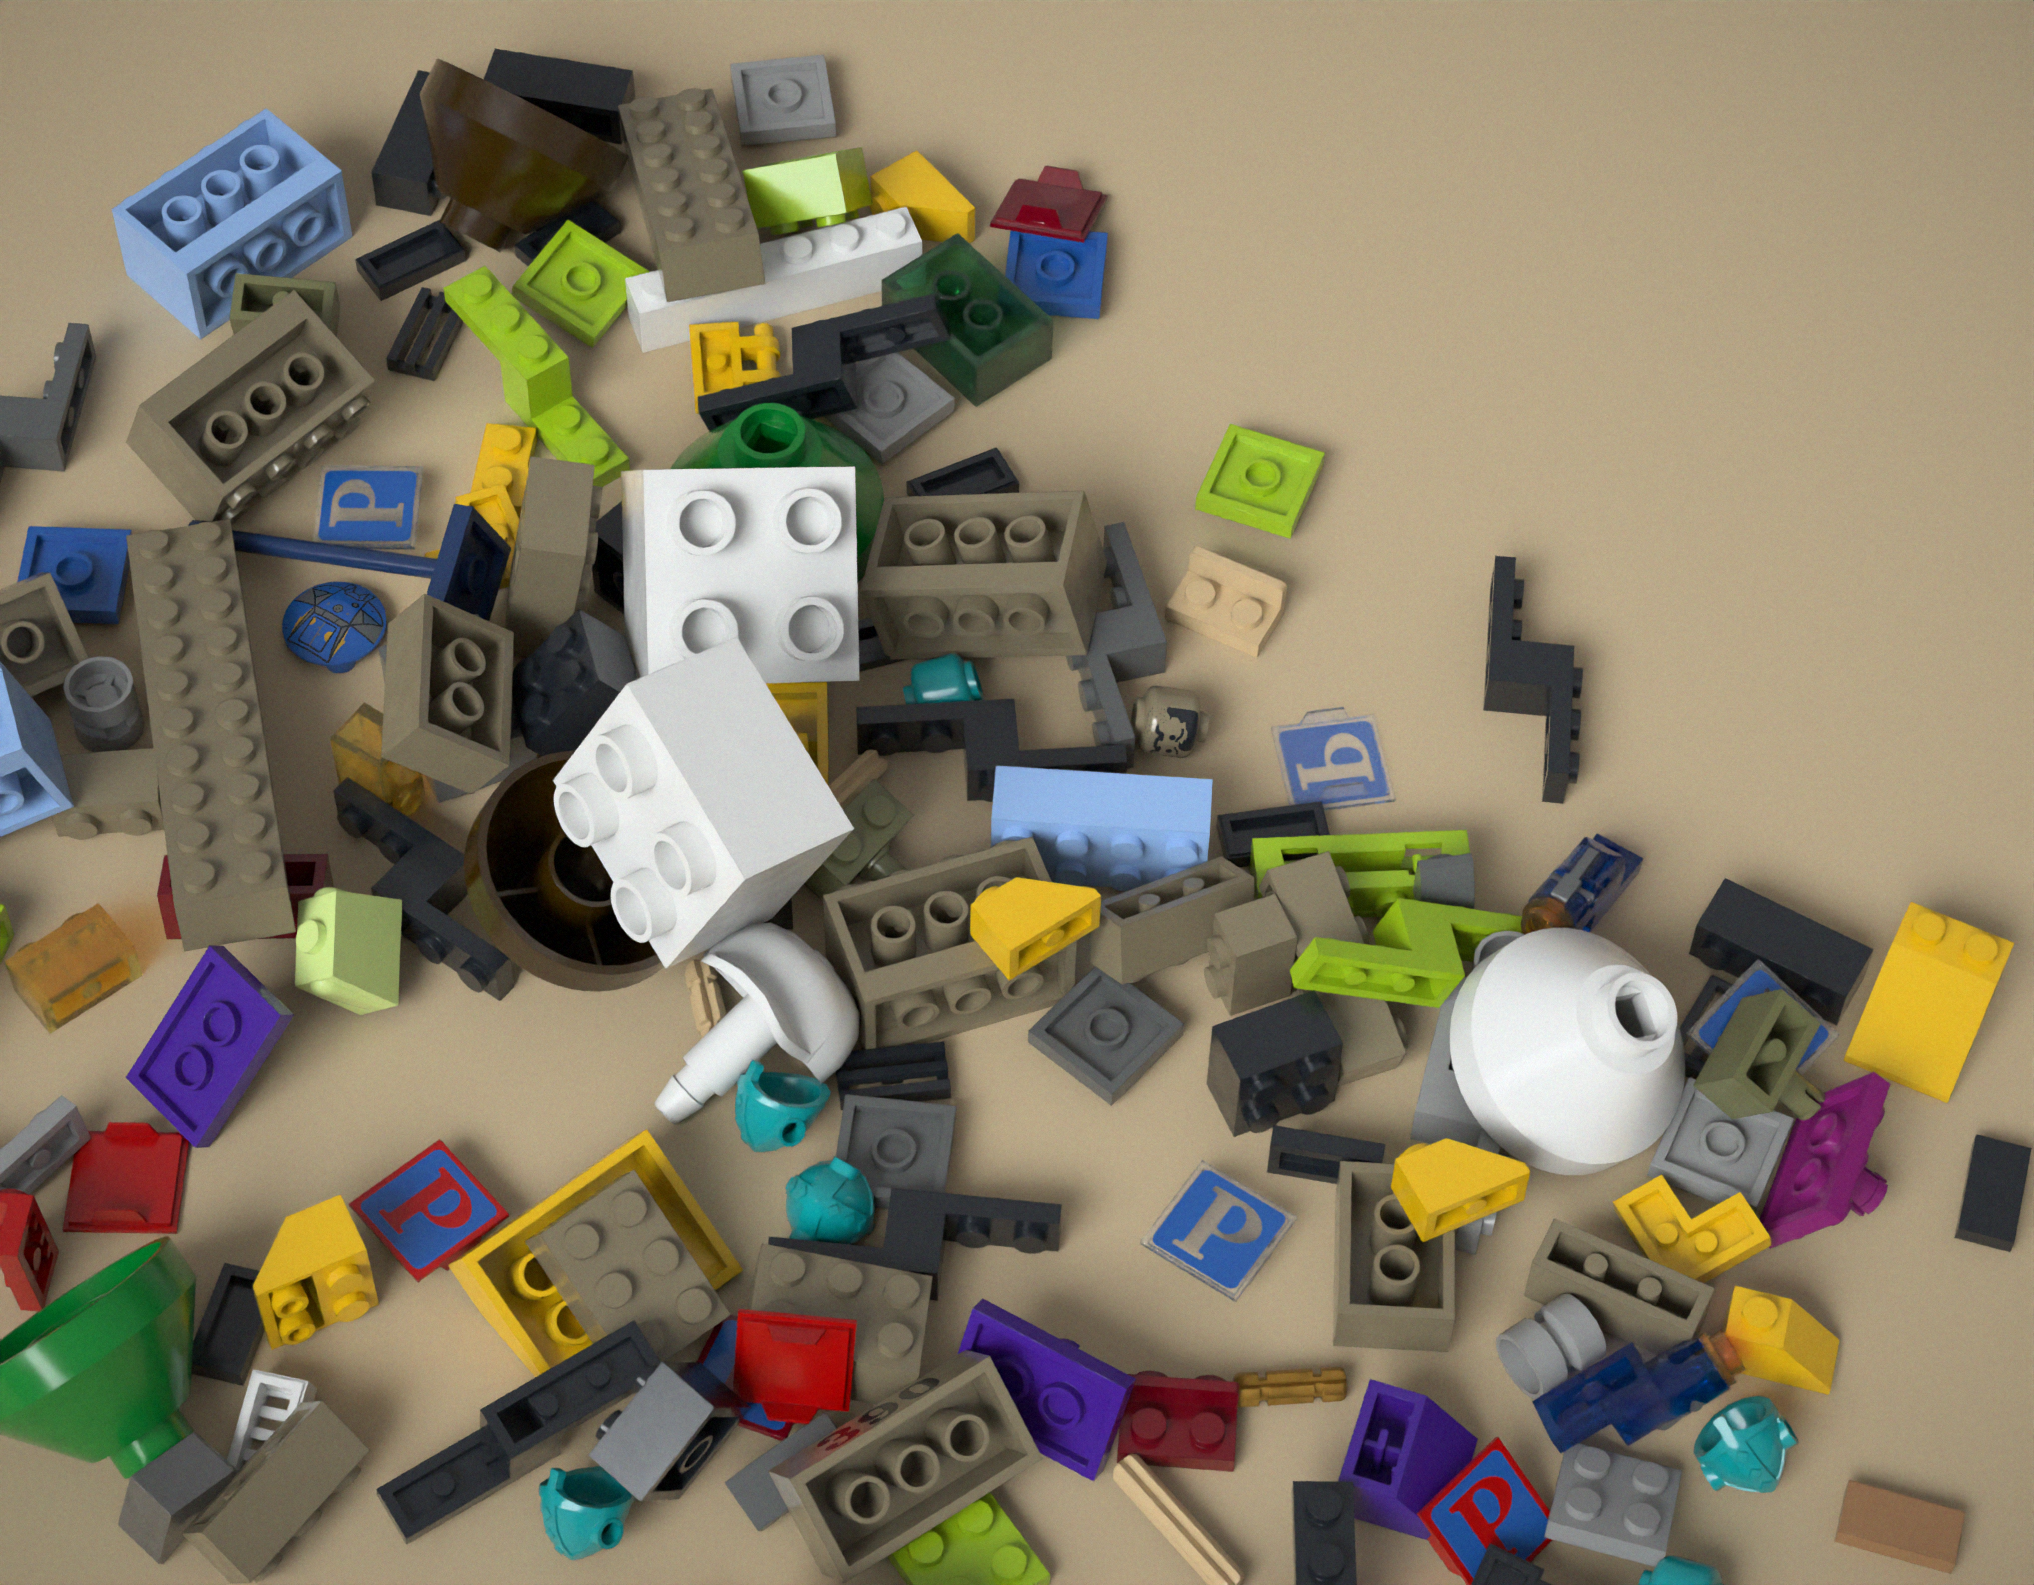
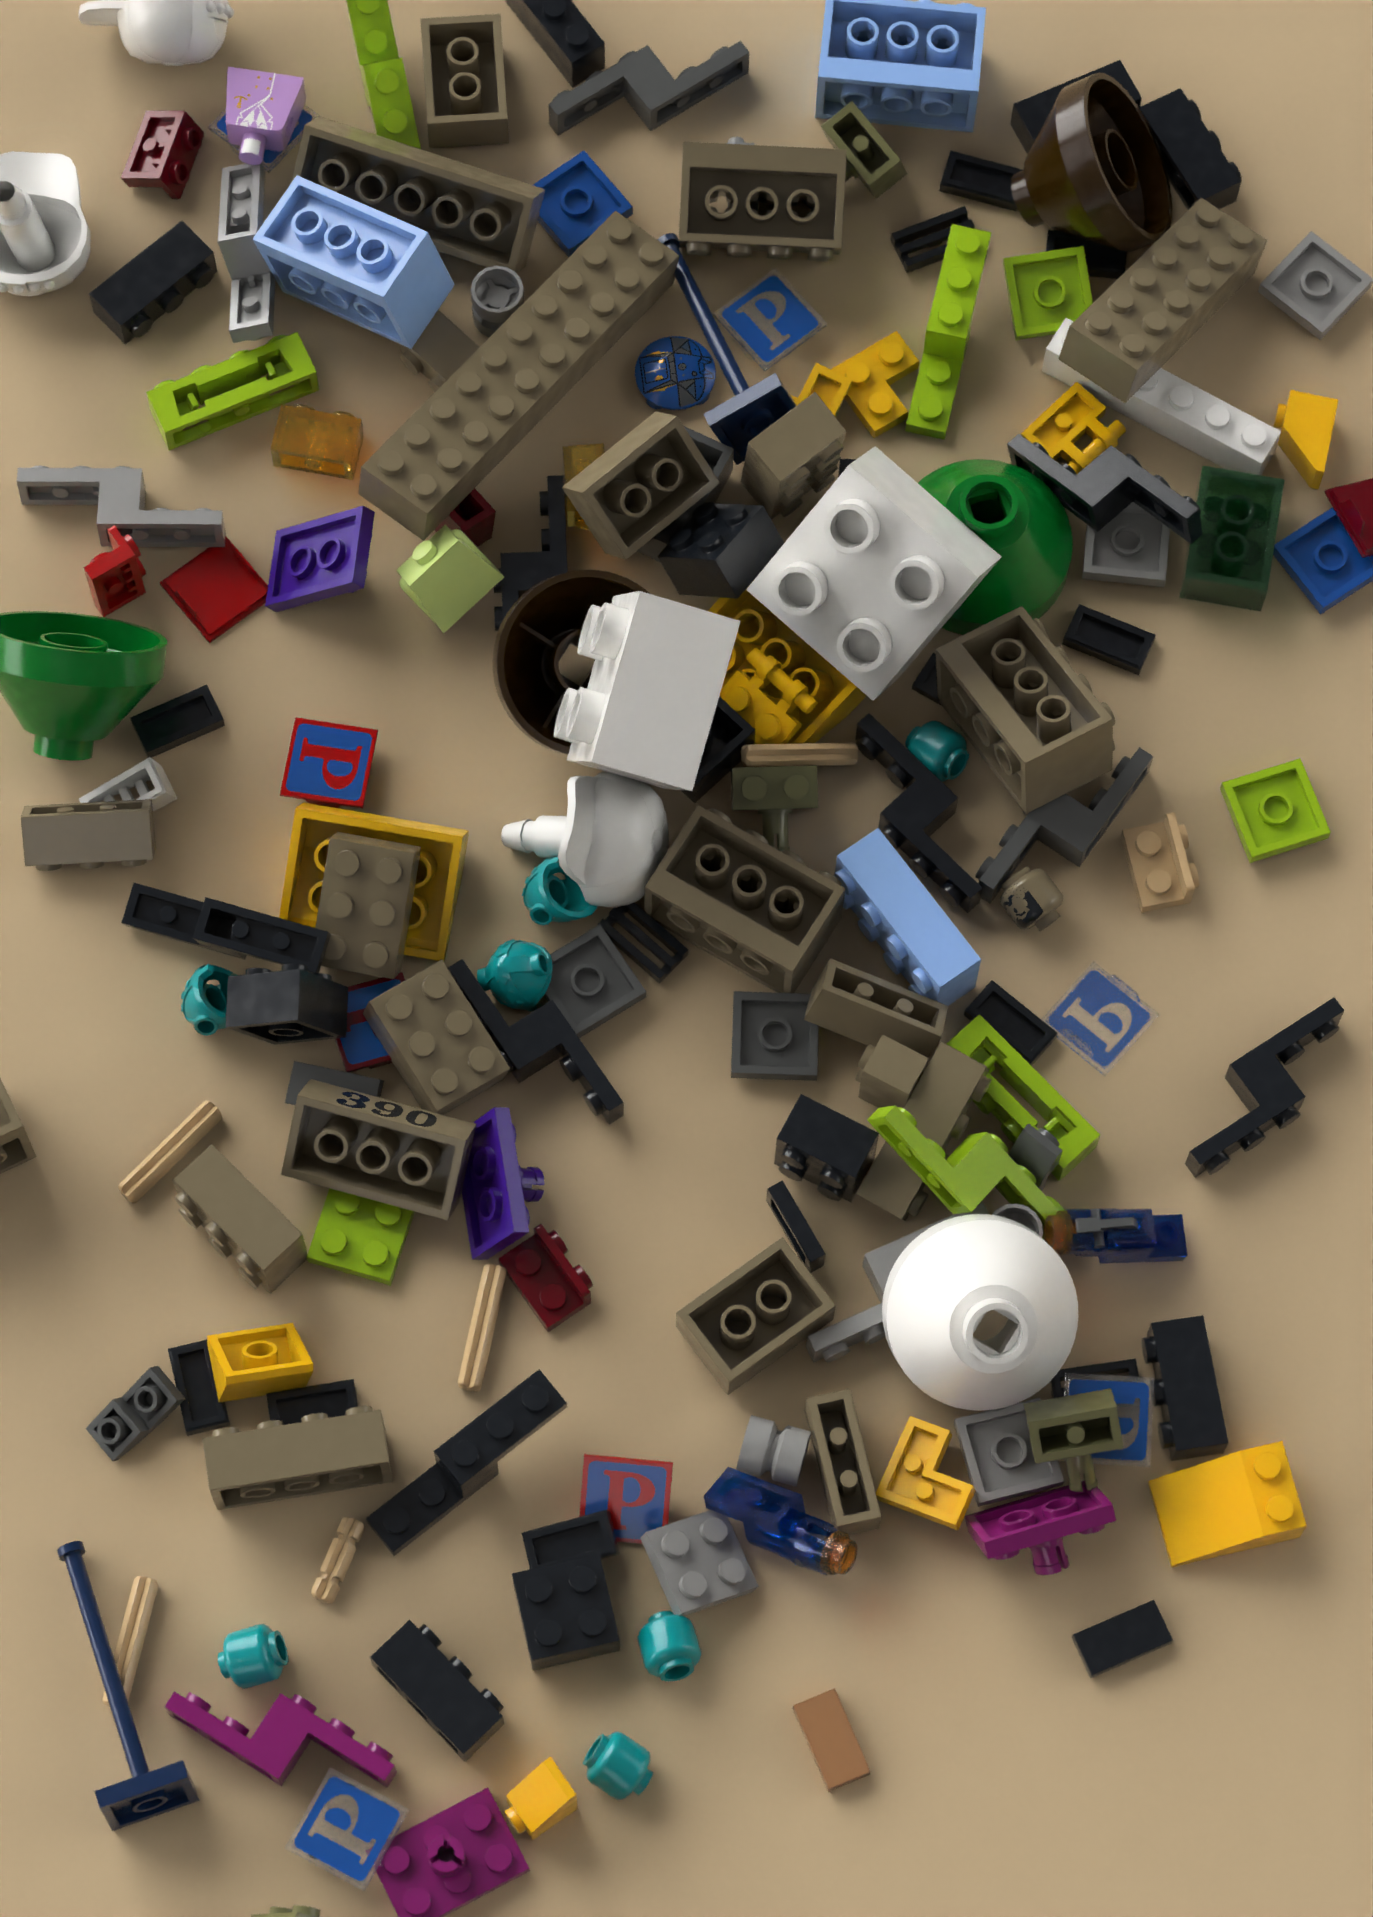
camera: 50 degrees right, 15 degrees up
(172, 1493) = (44, 781): flat silver slope -> none
(314, 1275) = (230, 738): yellow slope -> none
(794, 1363) = (382, 1040): red piece -> none
(805, 188) = (1236, 363): lime brick -> none
(1031, 921) = (772, 935): yellow slope -> none
(1219, 1230) = (691, 1204): piece -> none
(1291, 1386) = (626, 1322): pearl gold axle -> none
(1402, 1457) = (623, 1417): dark purple slope -> none
(1455, 1185) = (810, 1313): yellow slope -> none
(1745, 1446) = (801, 1610): teal helmet -> none
(1780, 1340) = (894, 1582): yellow slope -> none

